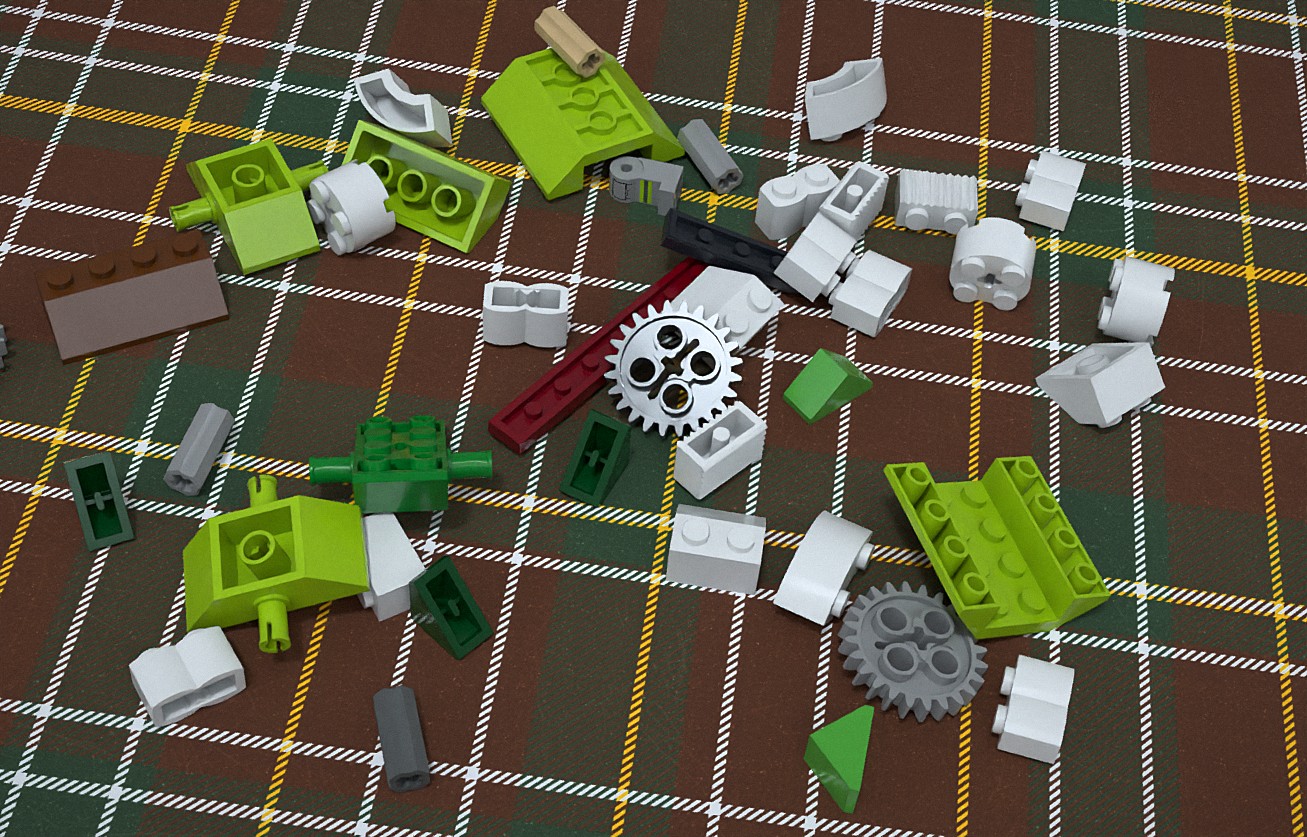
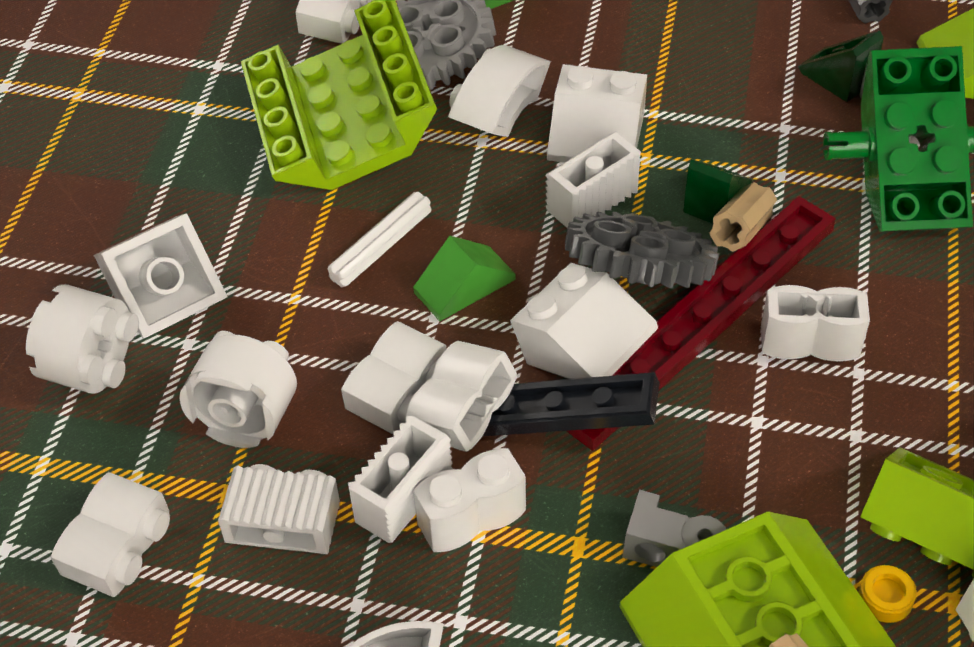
camera: 170 degrees left, 0 degrees up
(497, 159) = (888, 593): none -> yellow tile
(585, 392) = (743, 216): none -> tan axle
(710, 156) = (584, 586): light grey axle -> none
(912, 424) = (379, 239): none -> white axle

